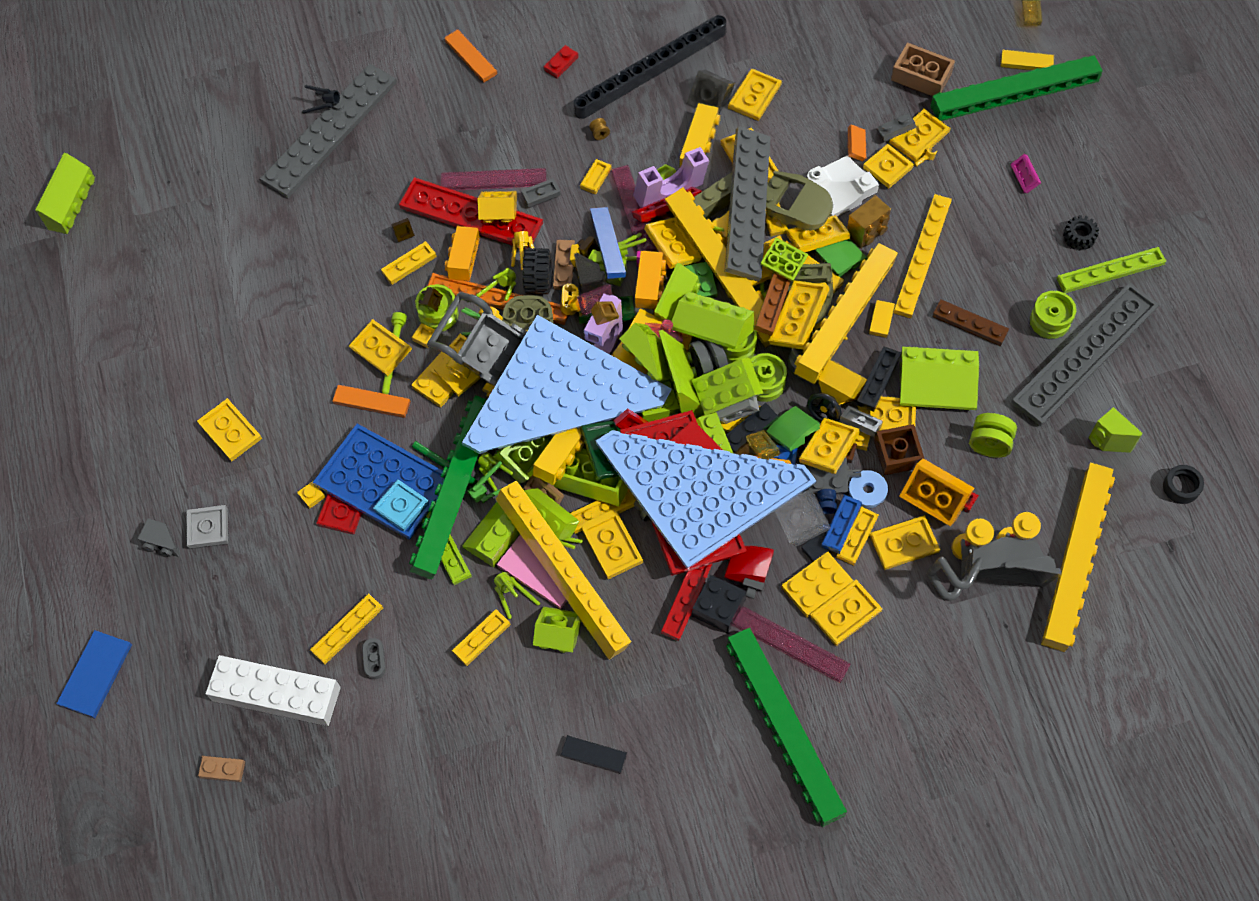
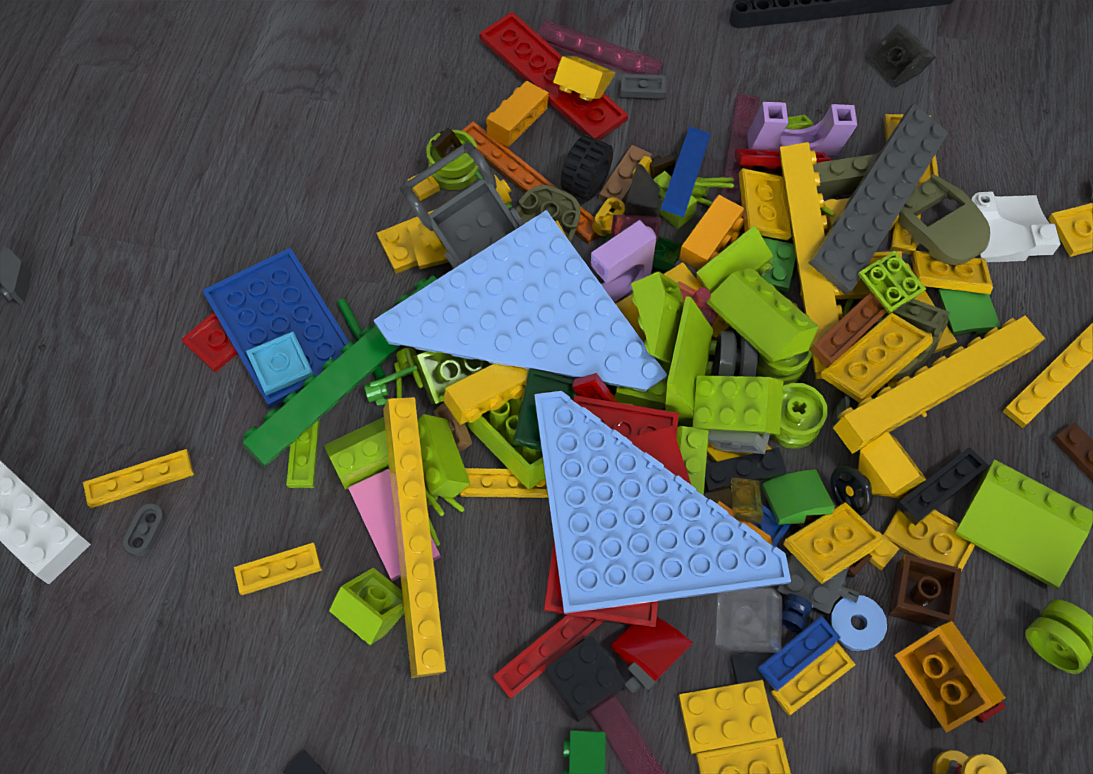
camera: 25 degrees right, 0 degrees up
(207, 526) = (66, 286): light grey plate -> none
(229, 429) = (156, 192): yellow plate -> none
(311, 495) = (195, 305): yellow plate -> none
(371, 401) = (324, 231): orange tile -> none
(380, 347) = (367, 176): yellow tile -> none
(398, 320) = (405, 156): lime piece -> none
(402, 230) = (467, 61): dark brown tile -> none
(408, 263) = (453, 99): yellow plate -> none
(504, 278) = (550, 162): lime plant -> none
(505, 584) = (342, 517): lime plant -> none
(520, 241) = (589, 125): yellow plant -> none
(595, 176) = (716, 95): yellow tile -> none
(599, 129) = (748, 44): pearl gold wheel -> none
(604, 312) = (627, 242): pearl gold slope -> none
(612, 545) = (495, 533): yellow plate -> none
(701, 129) = (870, 92): yellow brick -> none
(754, 94) = (953, 81): yellow tile -> none
(856, 143) = (1054, 185): orange tile -> none
(861, 420) = (892, 529): dark grey plate -> none
(868, 221) = (1024, 284): pearl gold brick -> none
(881, 318) = (983, 411): yellow tile -> none
(904, 542) = (872, 720): yellow tile -> none

